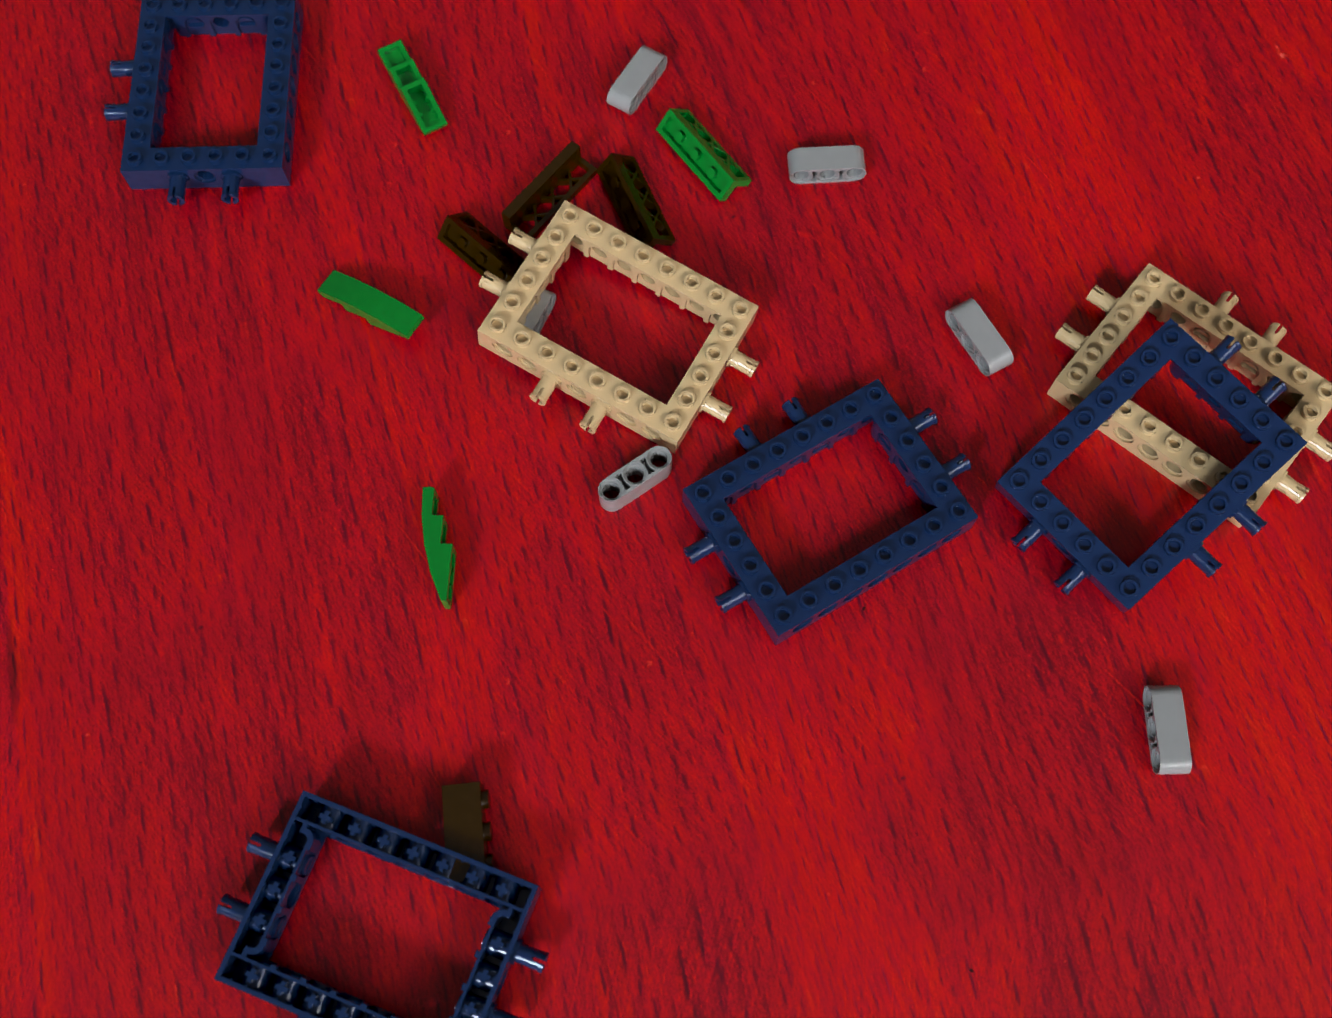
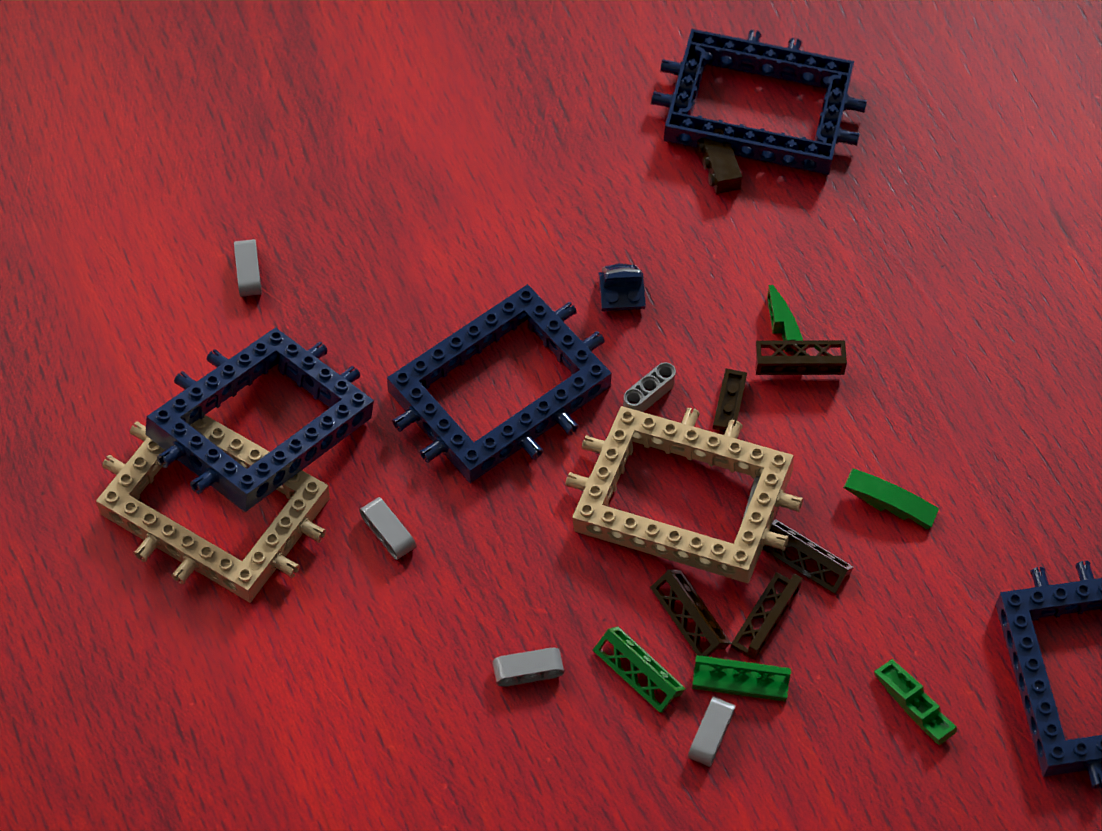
camera: 170 degrees right, 10 degrees down
(442, 483) = (801, 364): none -> dark brown fence
(534, 454) = (729, 398): none -> dark brown plate
(593, 130) = (741, 678): none -> green fence
(646, 638) = (621, 288): none -> dark blue piece

